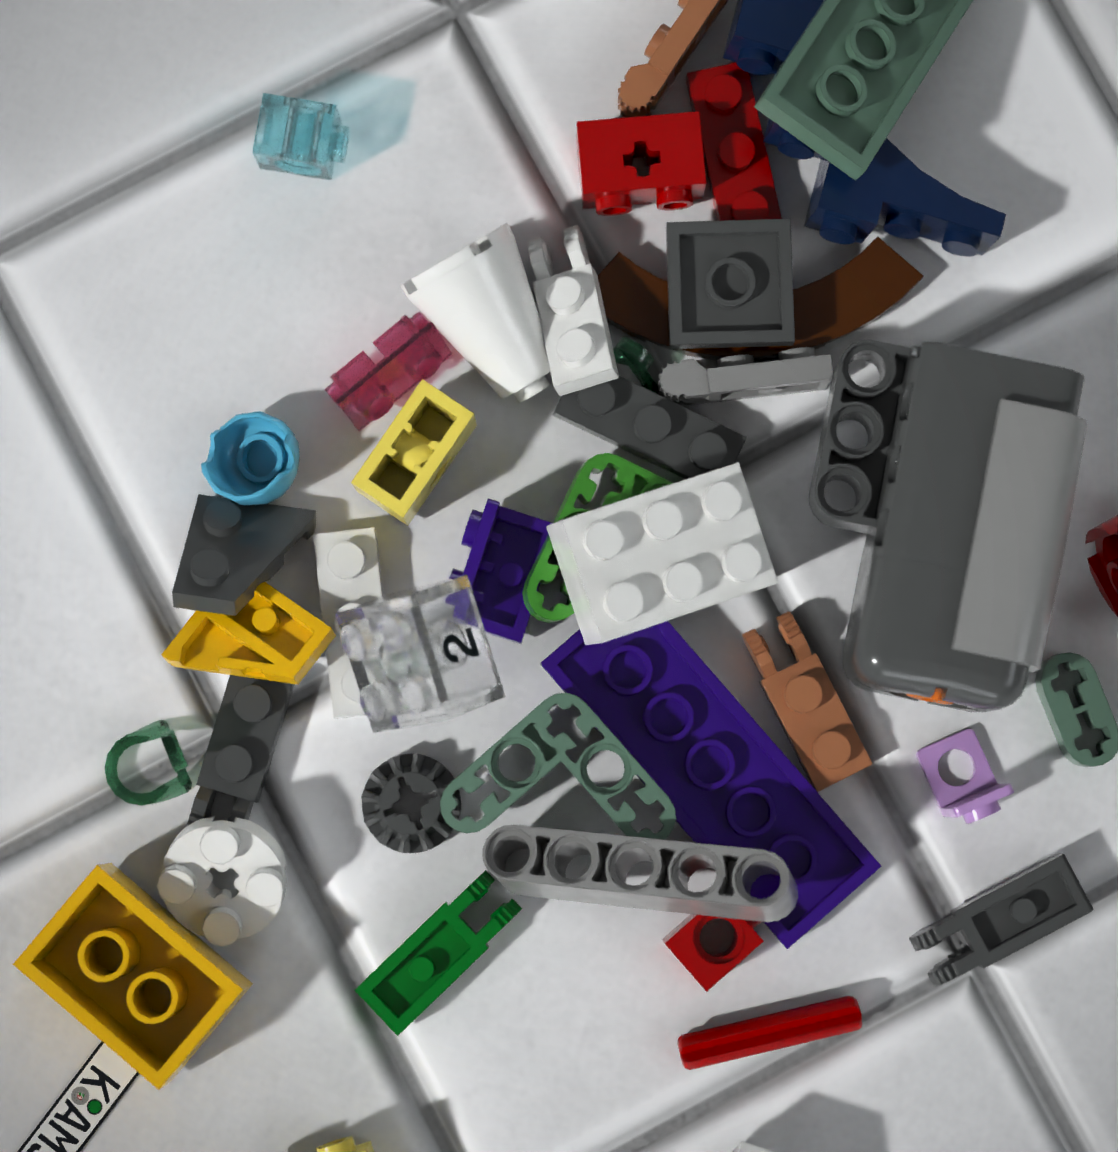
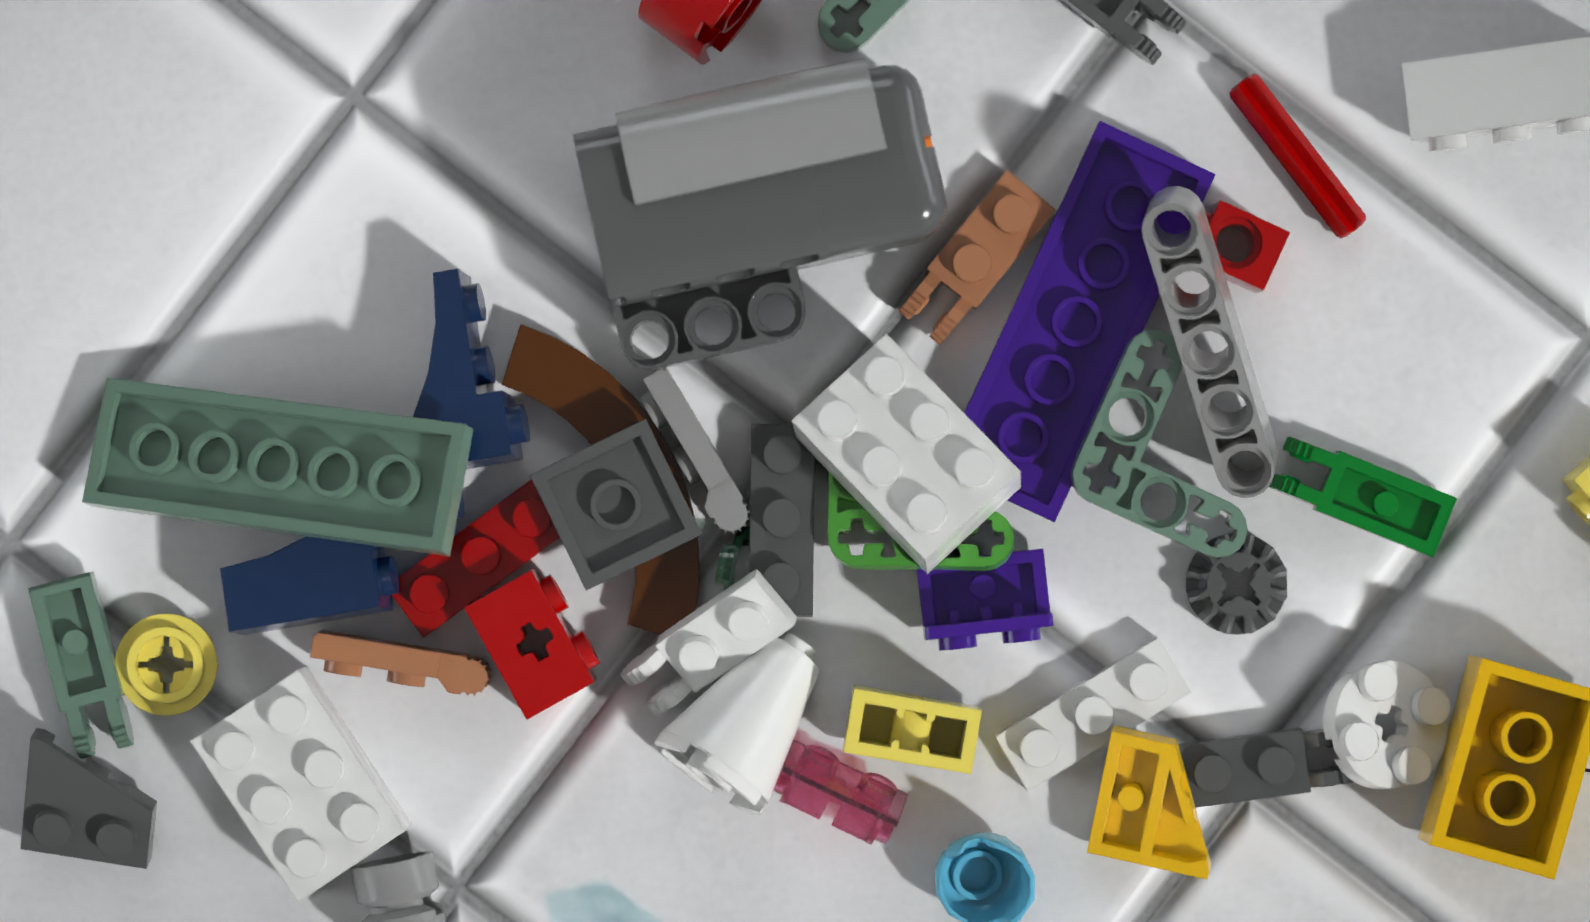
camera: 115 degrees left, 5 degrees up
(167, 791) = (1323, 813): clear green piece -> none
(235, 551) = (1079, 856): dark grey wing -> none
(420, 655) = (1102, 636): clear brick -> none
(974, 798) = (994, 59): lavender bracket -> none

